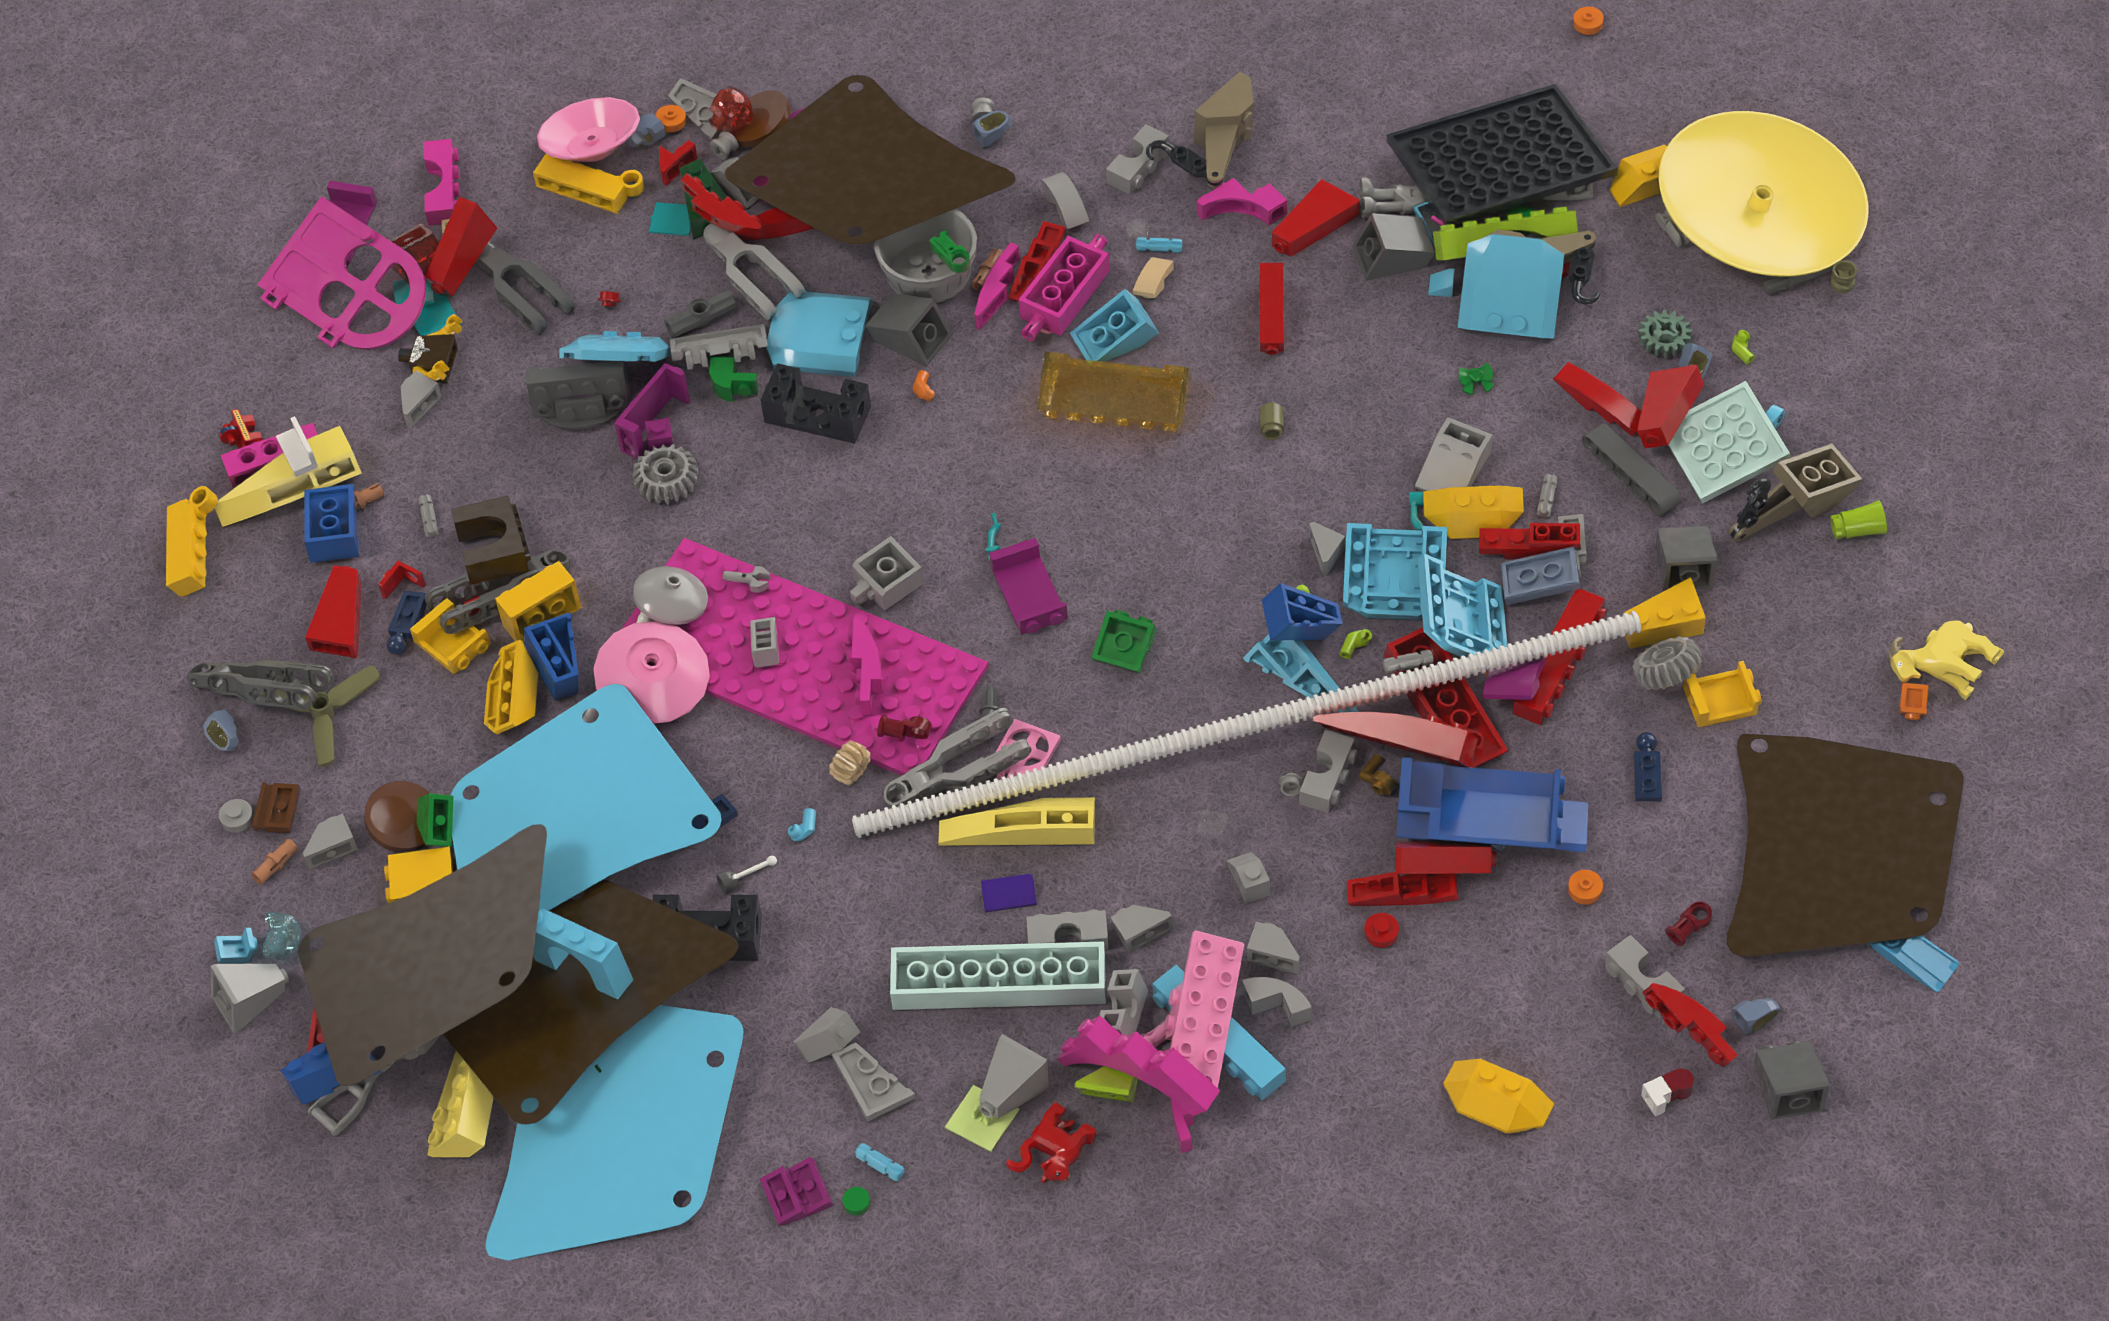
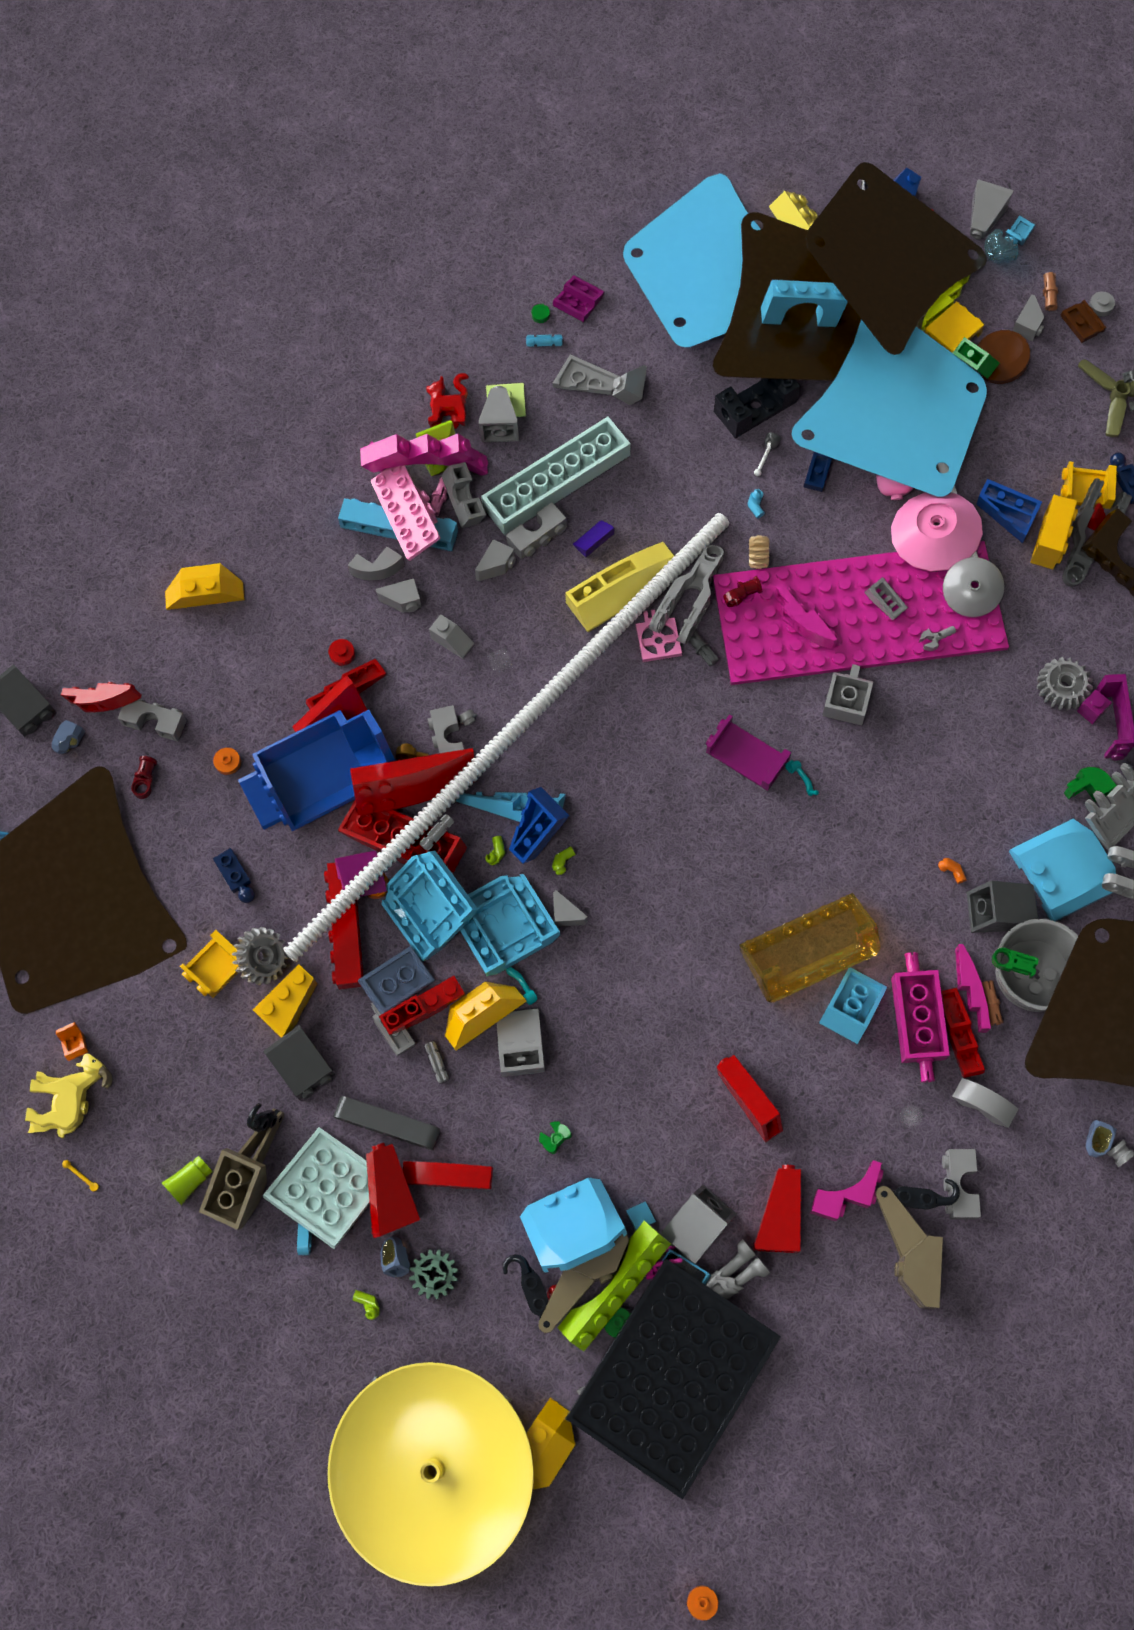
camera: 145 degrees right, 15 degrees up
(511, 689) = (1009, 466): yellow wedge -> none
(790, 406) = (1032, 796): black plate -> none
(1124, 641) = (651, 751): green plate -> none
(1152, 278) = (863, 1073): tan slope -> none
(1159, 244) = (883, 1112): medium azure axle -> none
(1271, 420) = (679, 997): olive brick -> none
(1666, 1088) = (97, 655): leg -> none
(1843, 276) = (319, 1428): olive wheel -> none
(1959, 573) = (93, 1186): none -> yellow hinge

